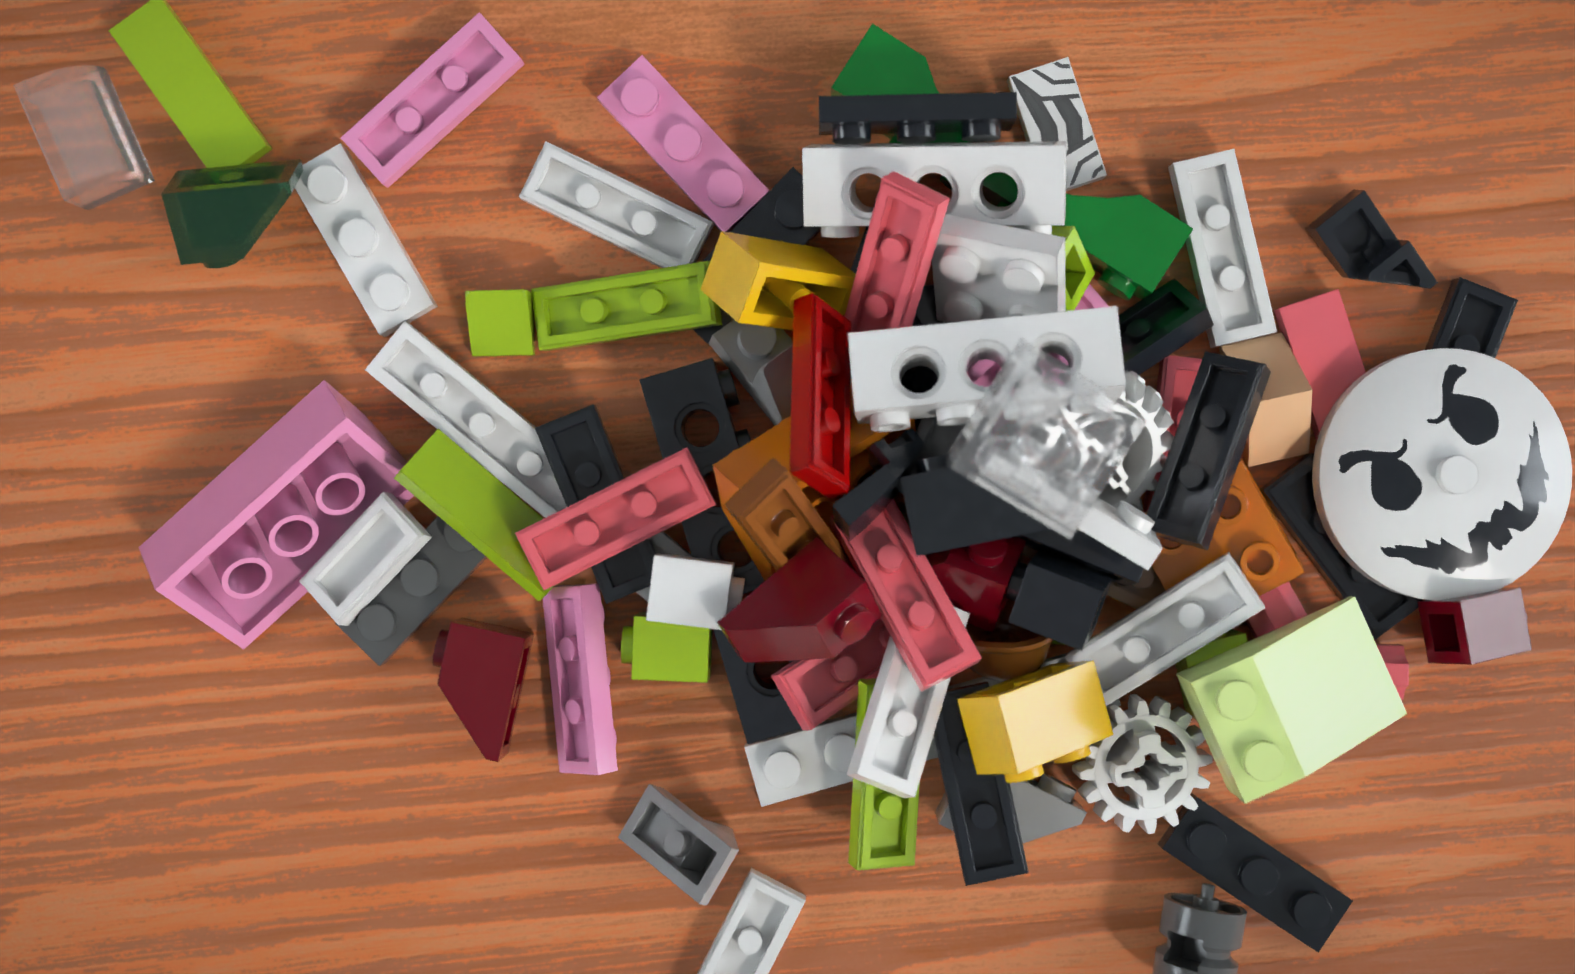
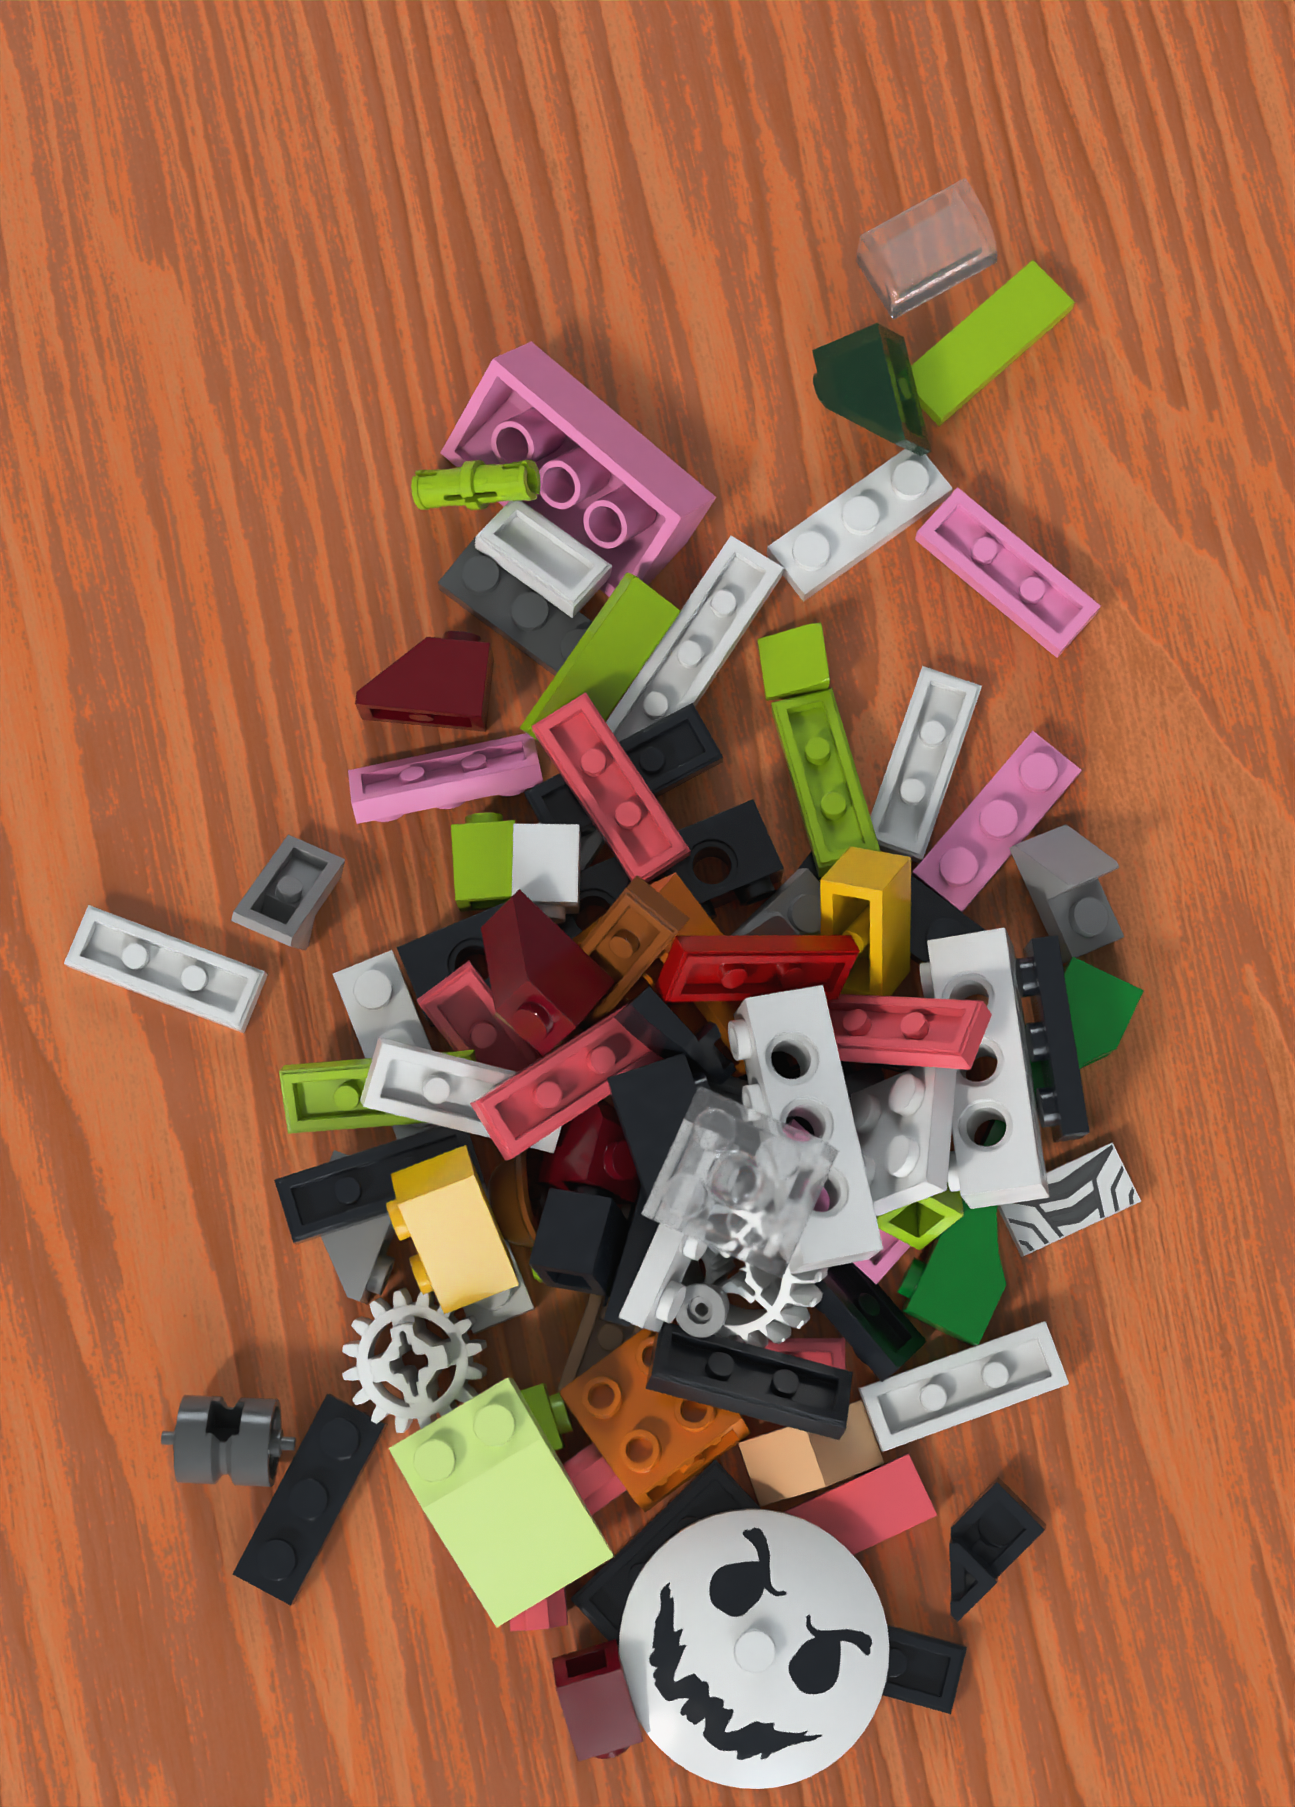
camera: 85 degrees right, 10 degrees down
(283, 618) = (476, 484): none -> lime pin
(756, 86) = (1064, 885): none -> light grey slope
(1138, 485) = (694, 1316): none -> light grey piece
(1170, 627) = (560, 1363): white tile -> none

